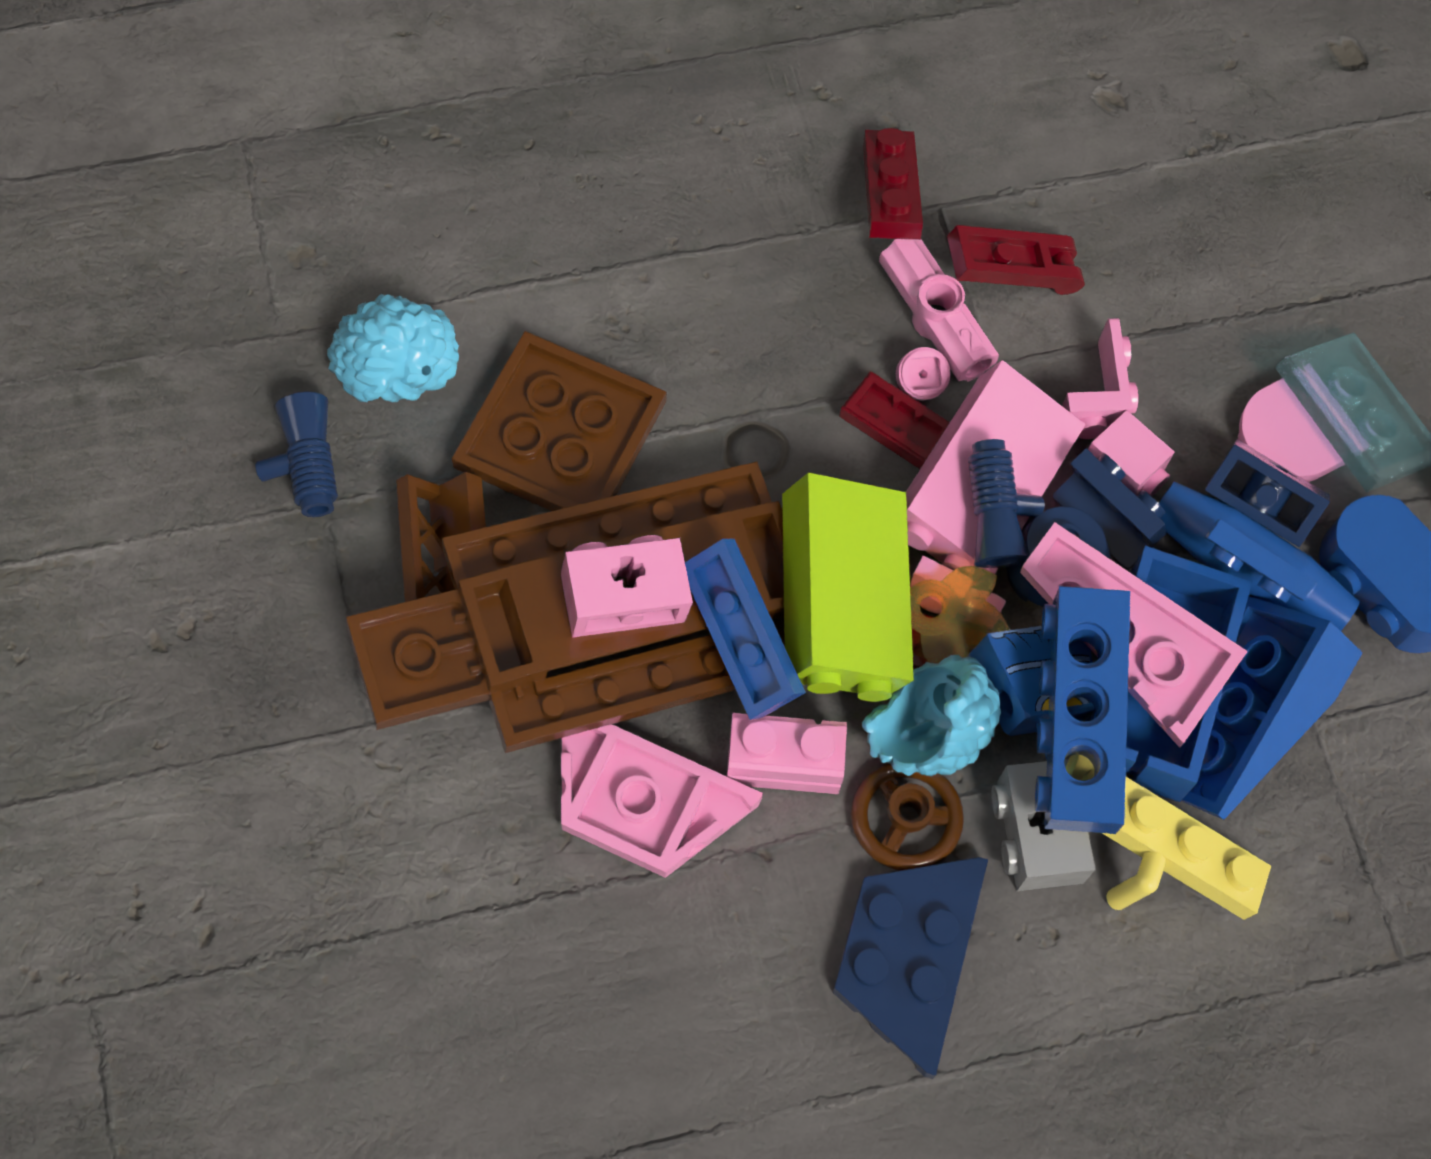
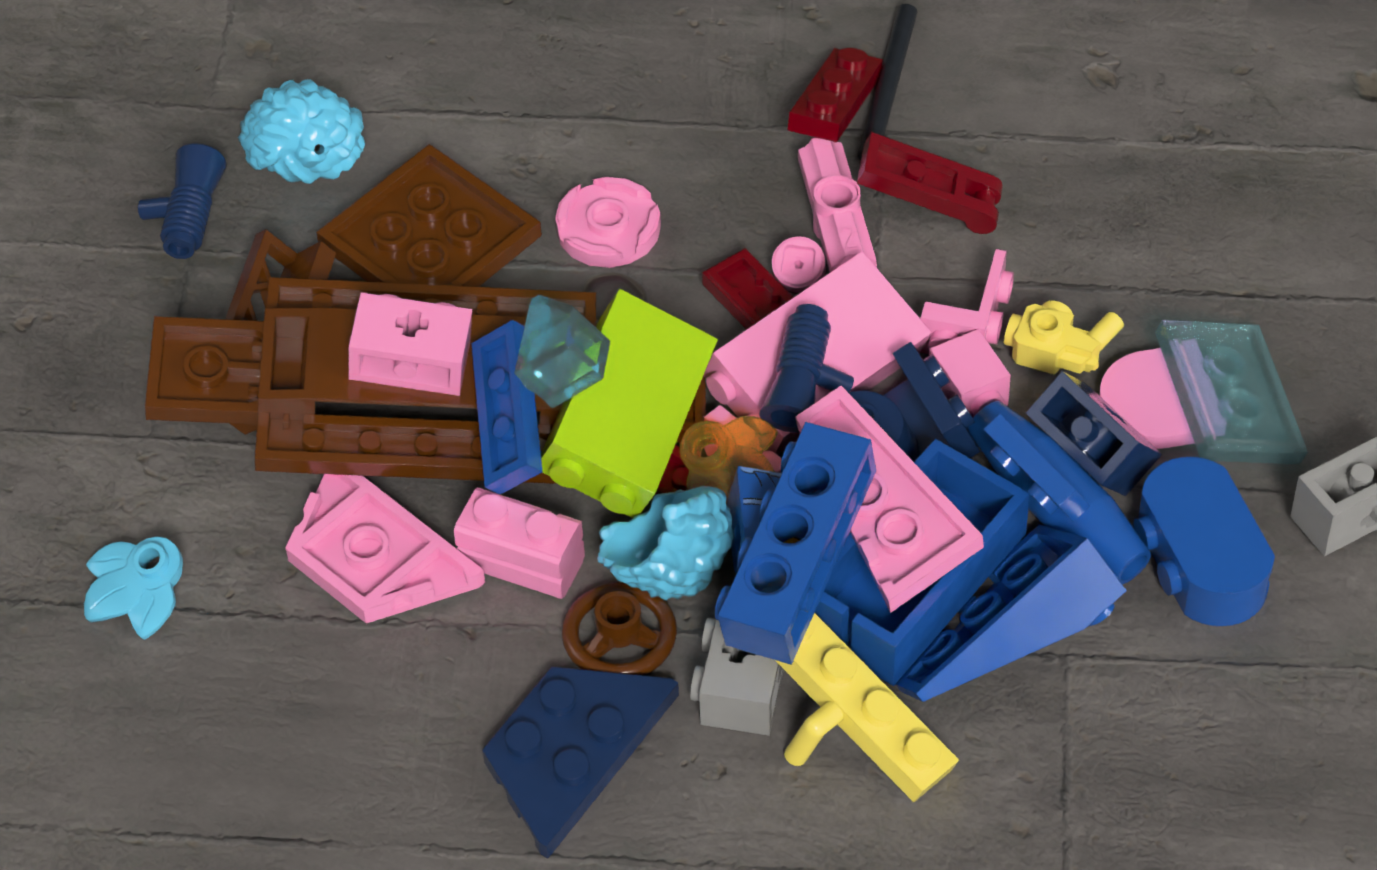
camera: 25 degrees right, 15 degrees down
(414, 907) = (130, 588): none -> medium azure plate
(723, 370) = (608, 222): none -> bright pink tile
(784, 562) = (559, 351): none -> clear light blue slope
(926, 156) = (890, 73): none -> black bar
(1182, 400) = (1049, 342): none -> light yellow piece

